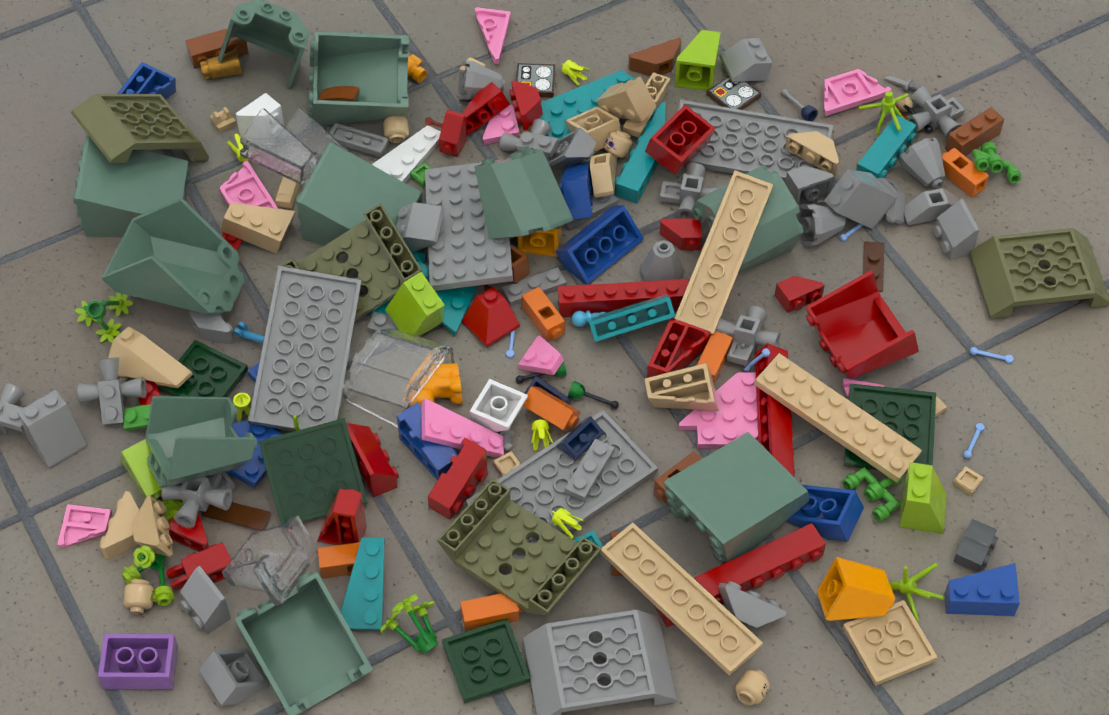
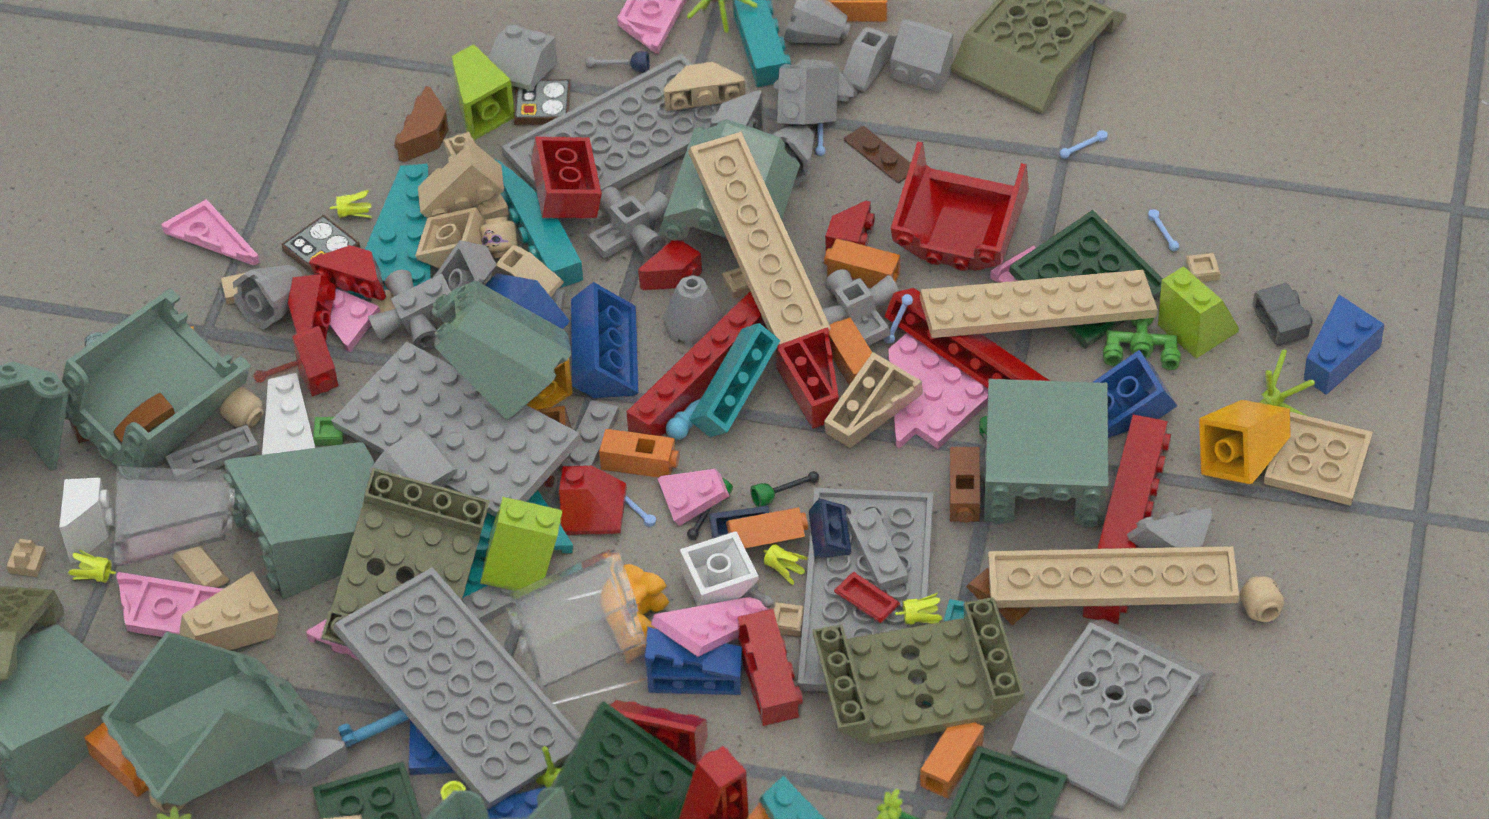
camera: 45 degrees left, 5 degrees down
(550, 489) = (866, 597): none -> red tile
(781, 317) = (862, 262): none -> orange brick

